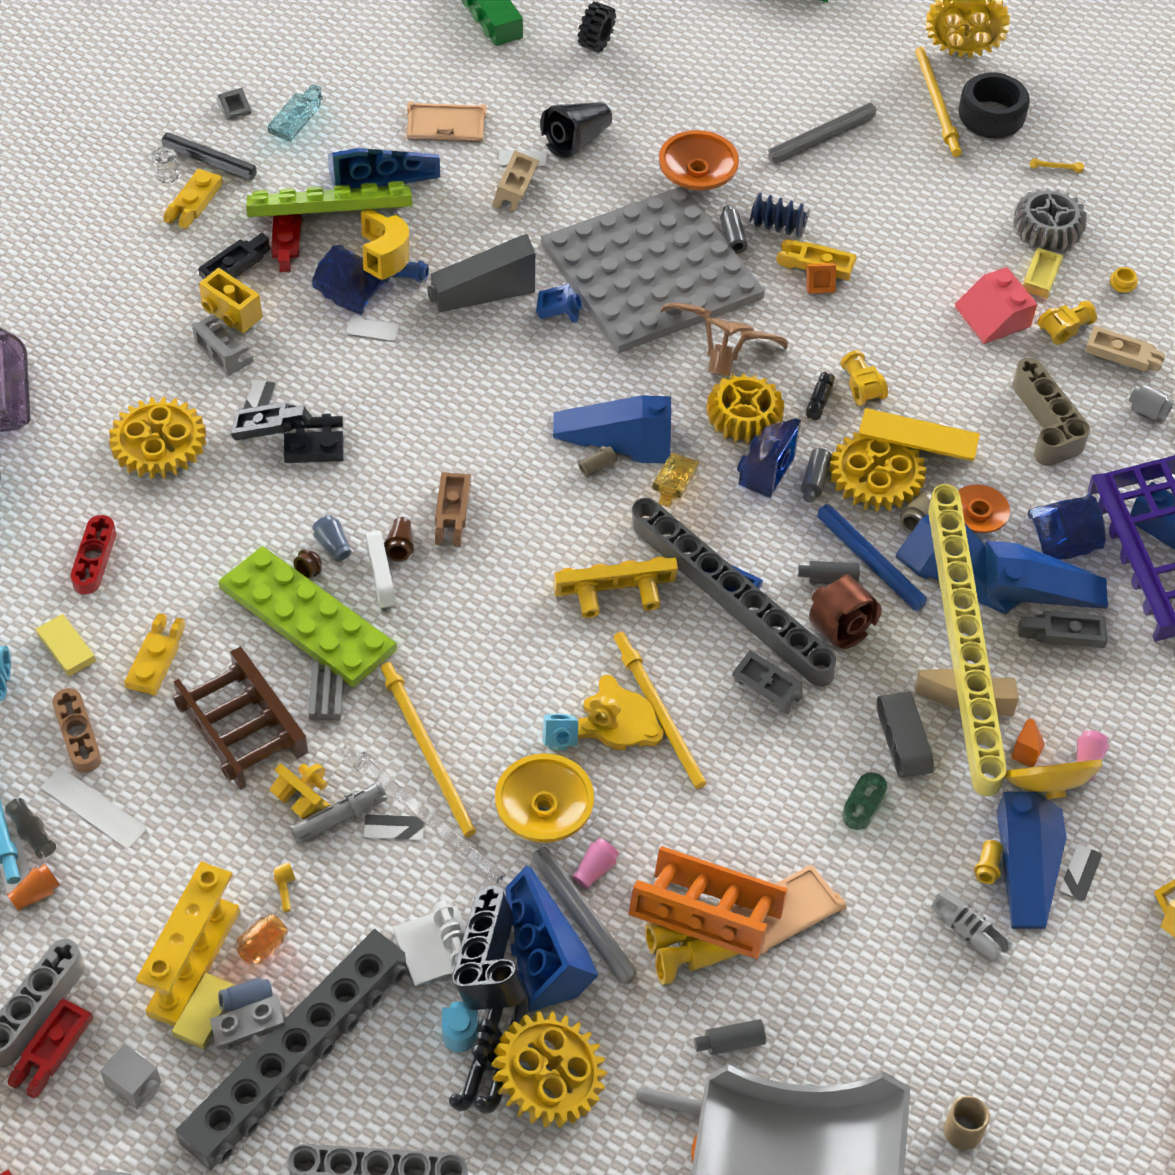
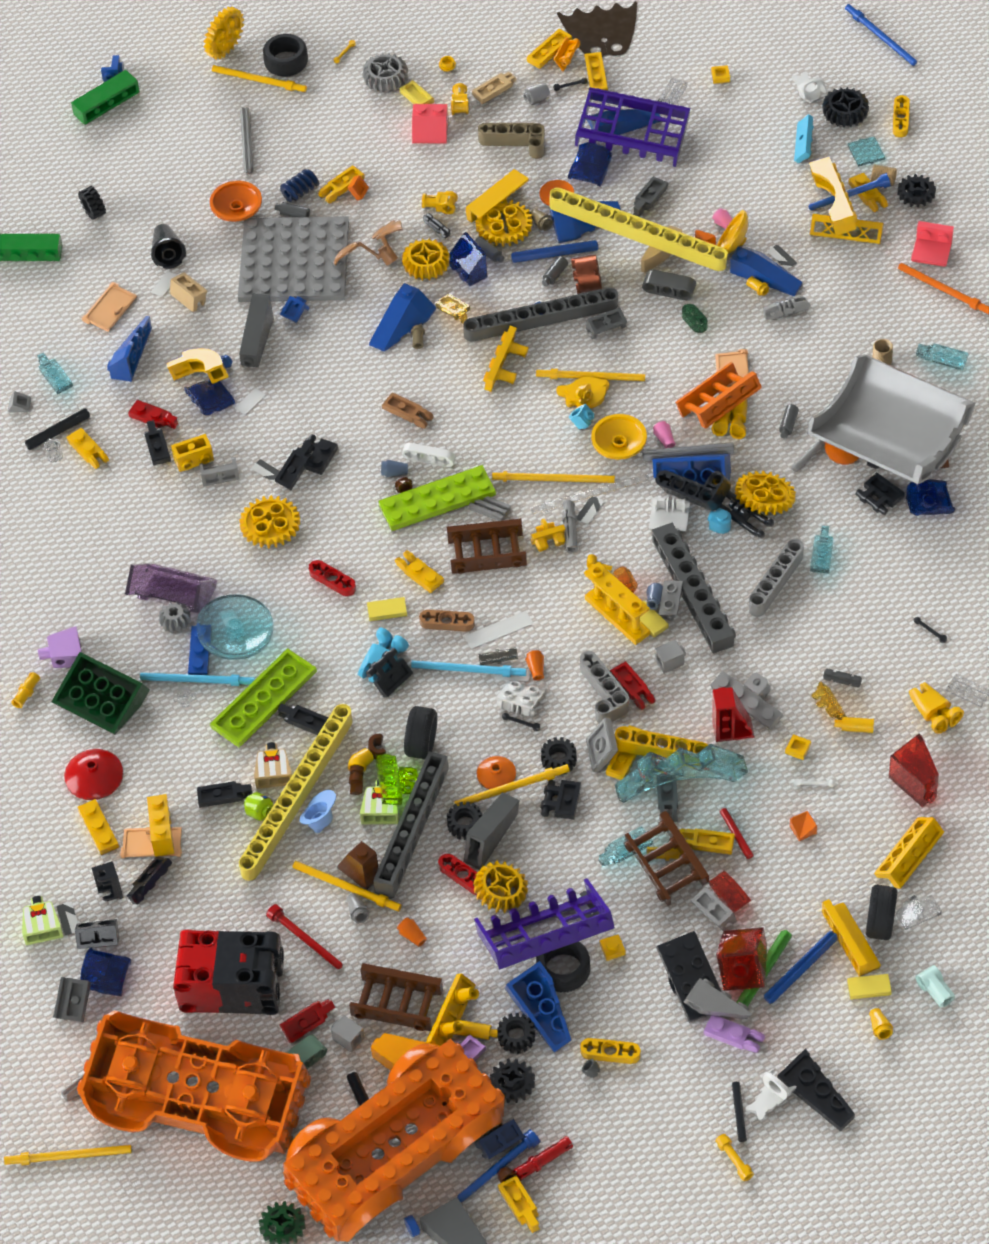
camera: 55 degrees left, 0 degrees up
(319, 200) = (143, 381): lime plate -> none
(399, 540) = (413, 437): reddish brown cone -> none
(1034, 577) = (616, 188): blue wedge -> none

